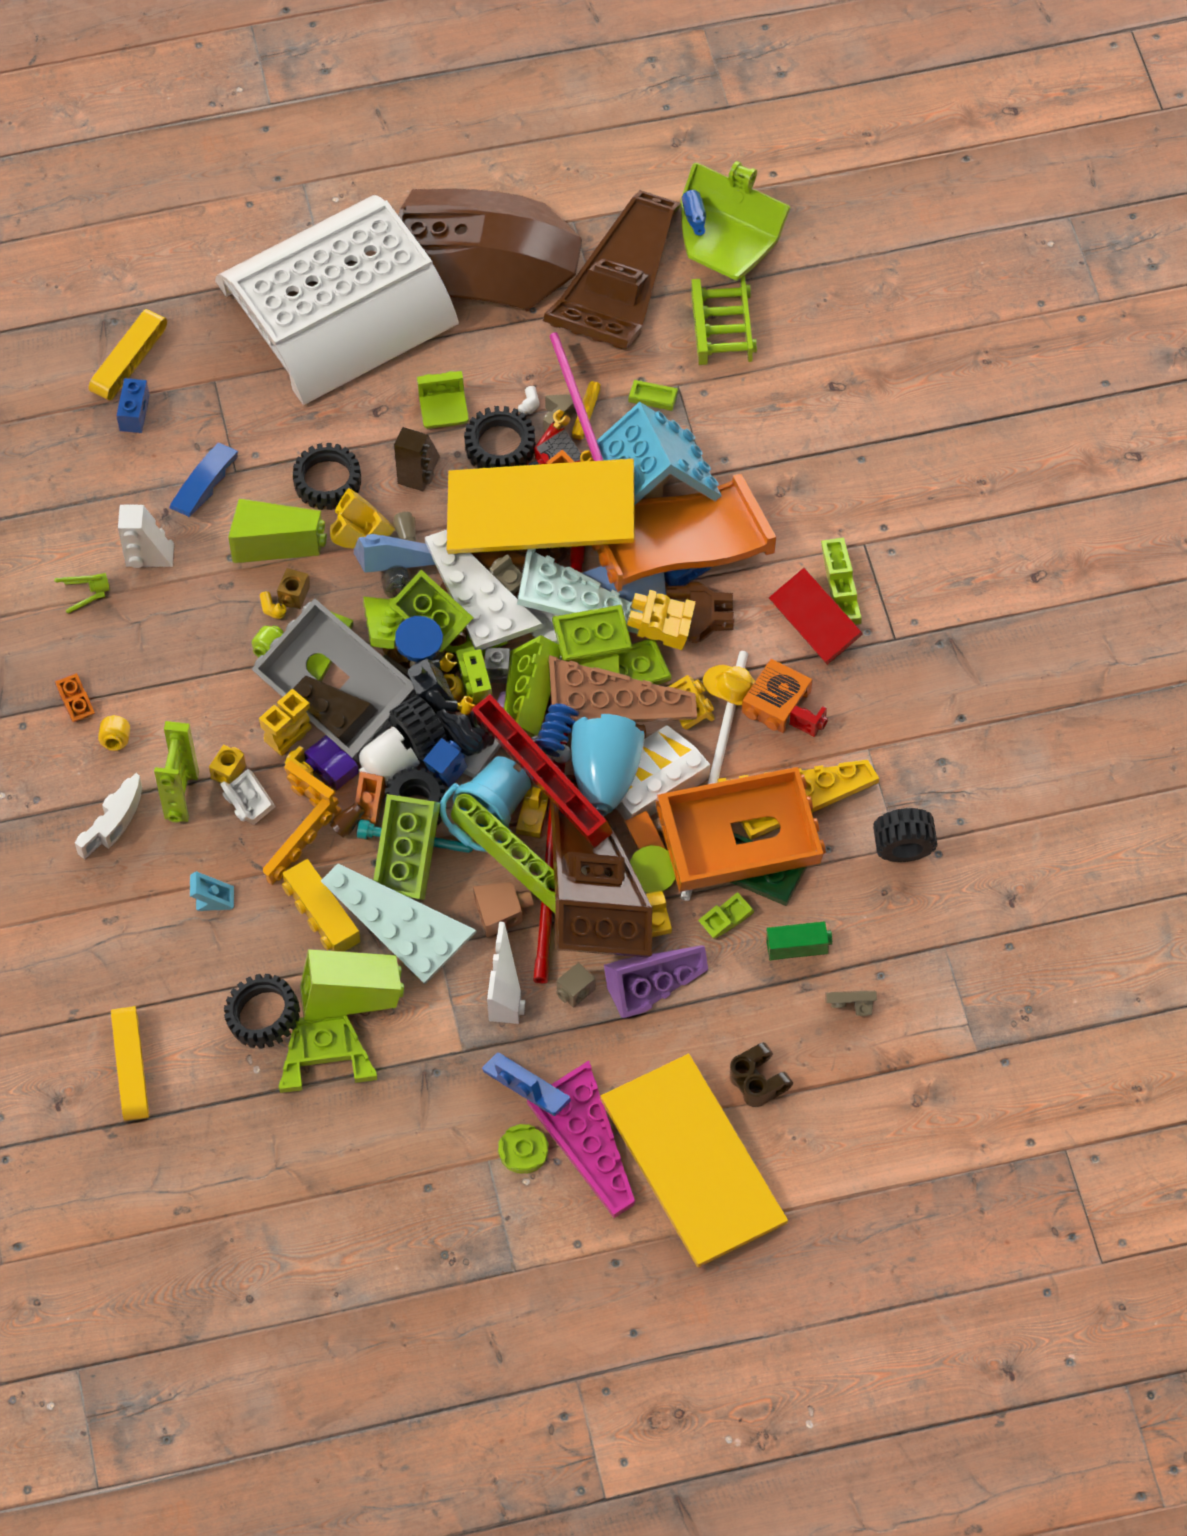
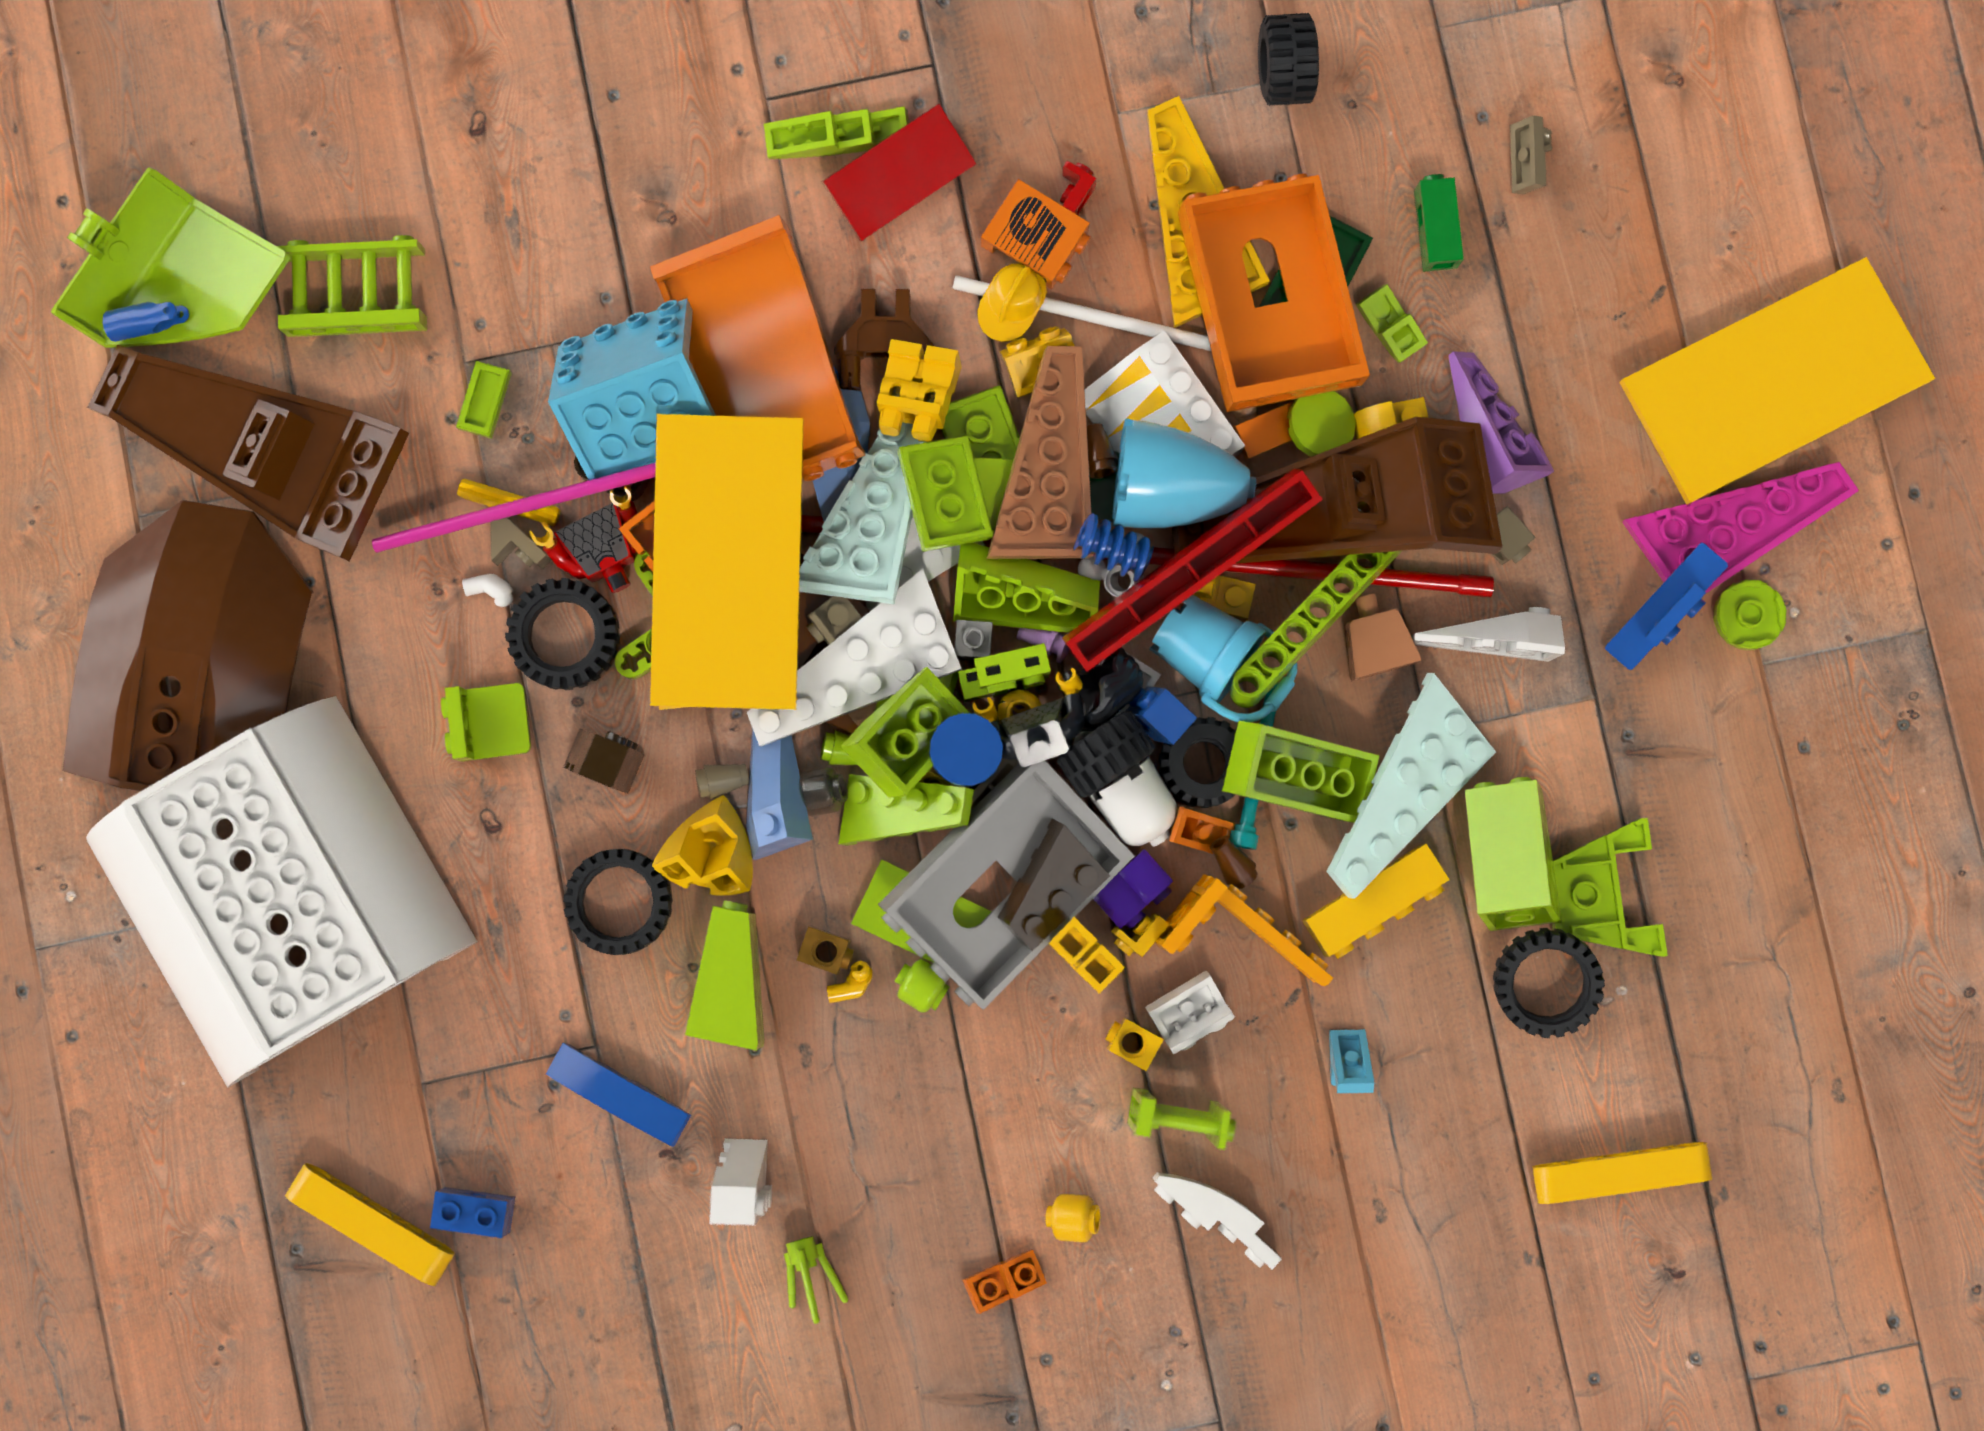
camera: 90 degrees left, 25 degrees up
(769, 1088) = (1667, 273): dark brown piece -> none

